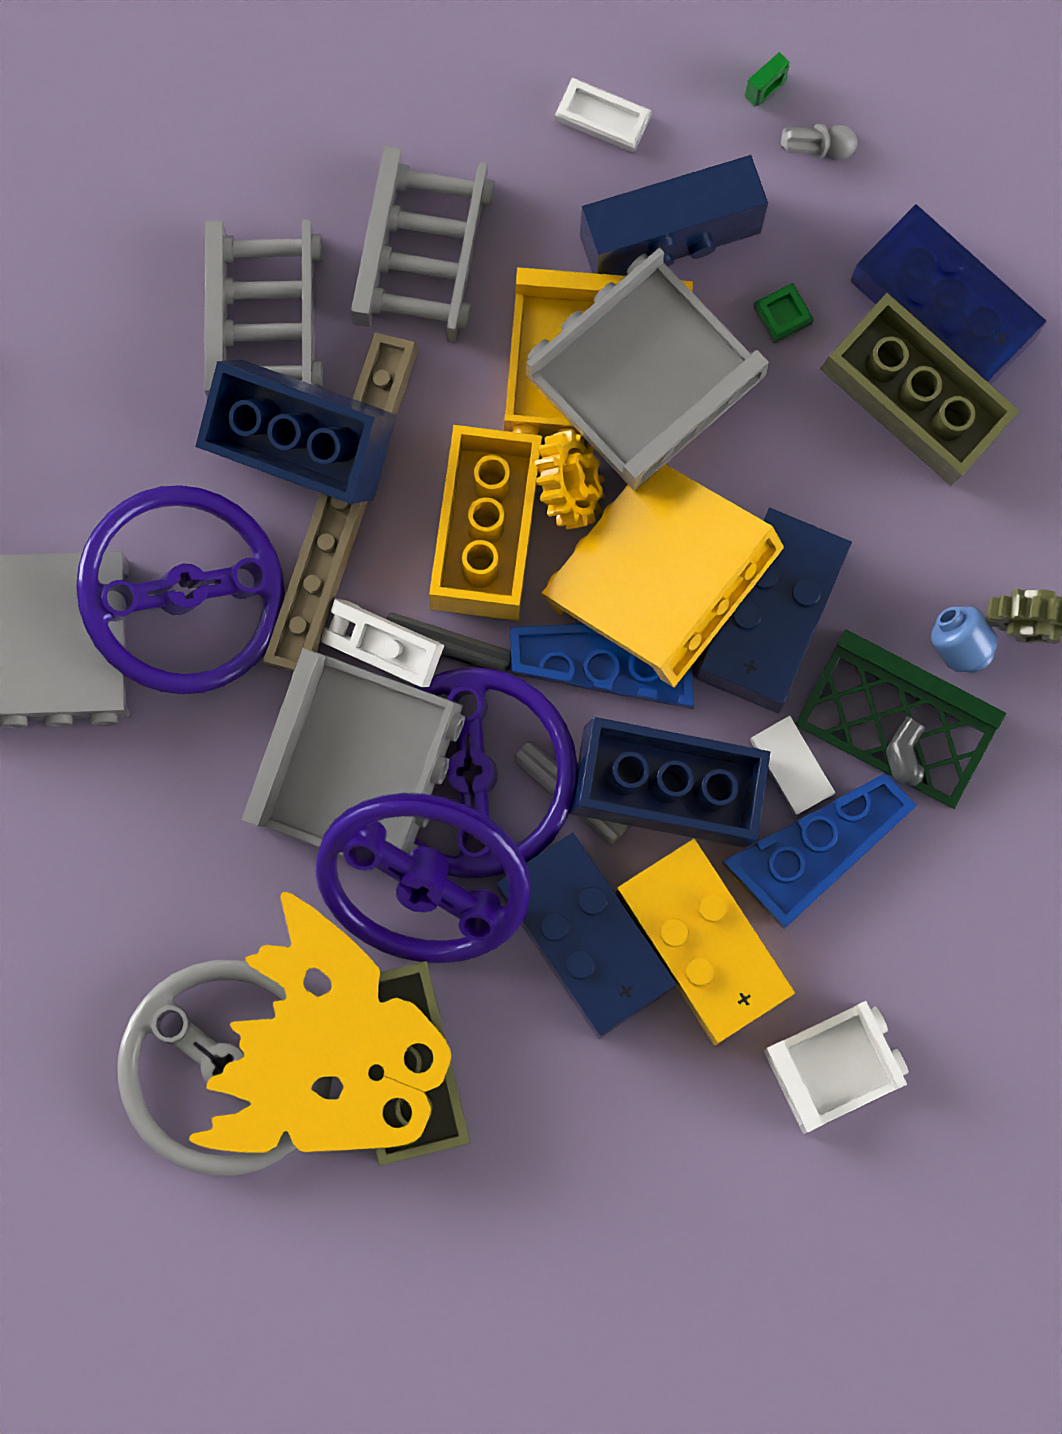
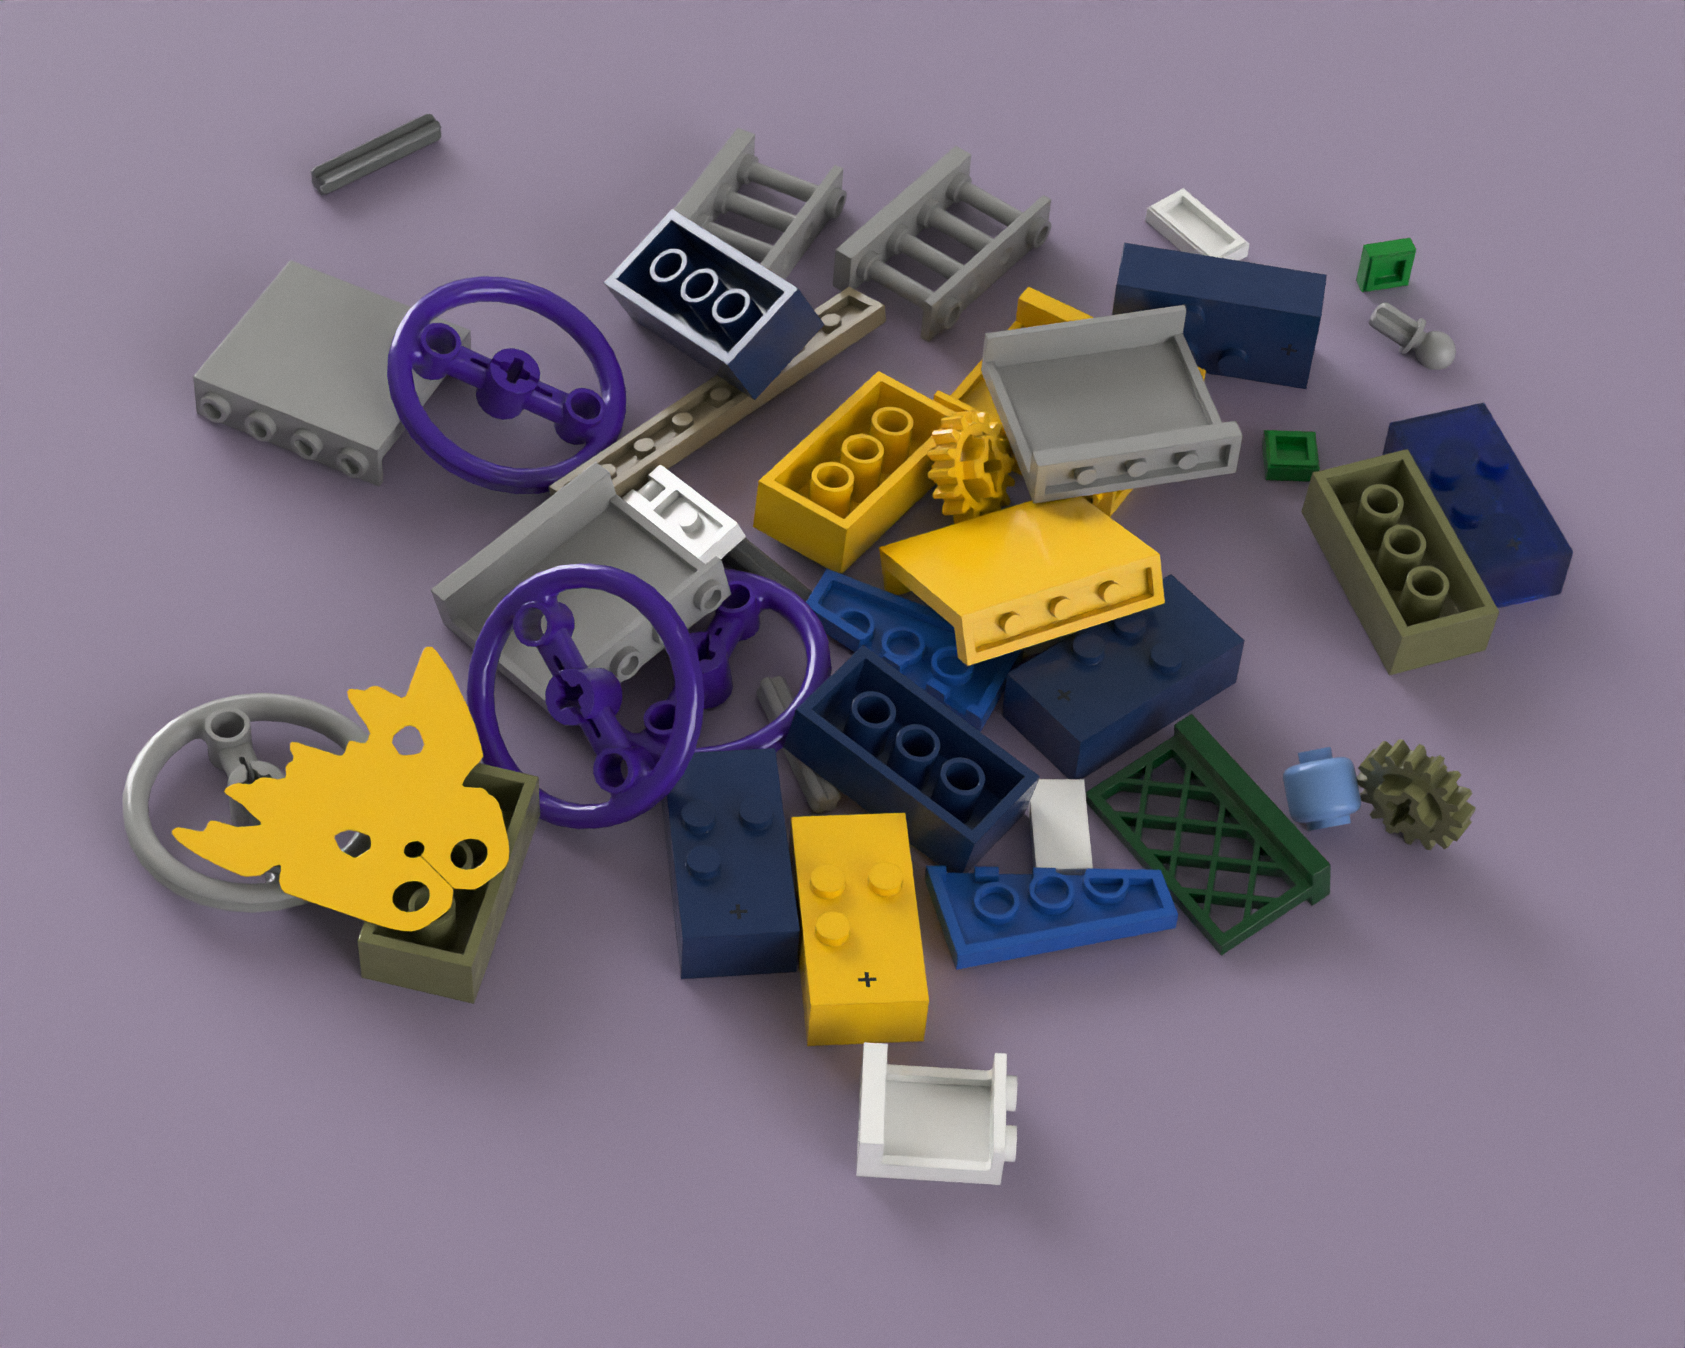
camera: 25 degrees right, 30 degrees down
(901, 753) = (1189, 858): dark grey arm -> none

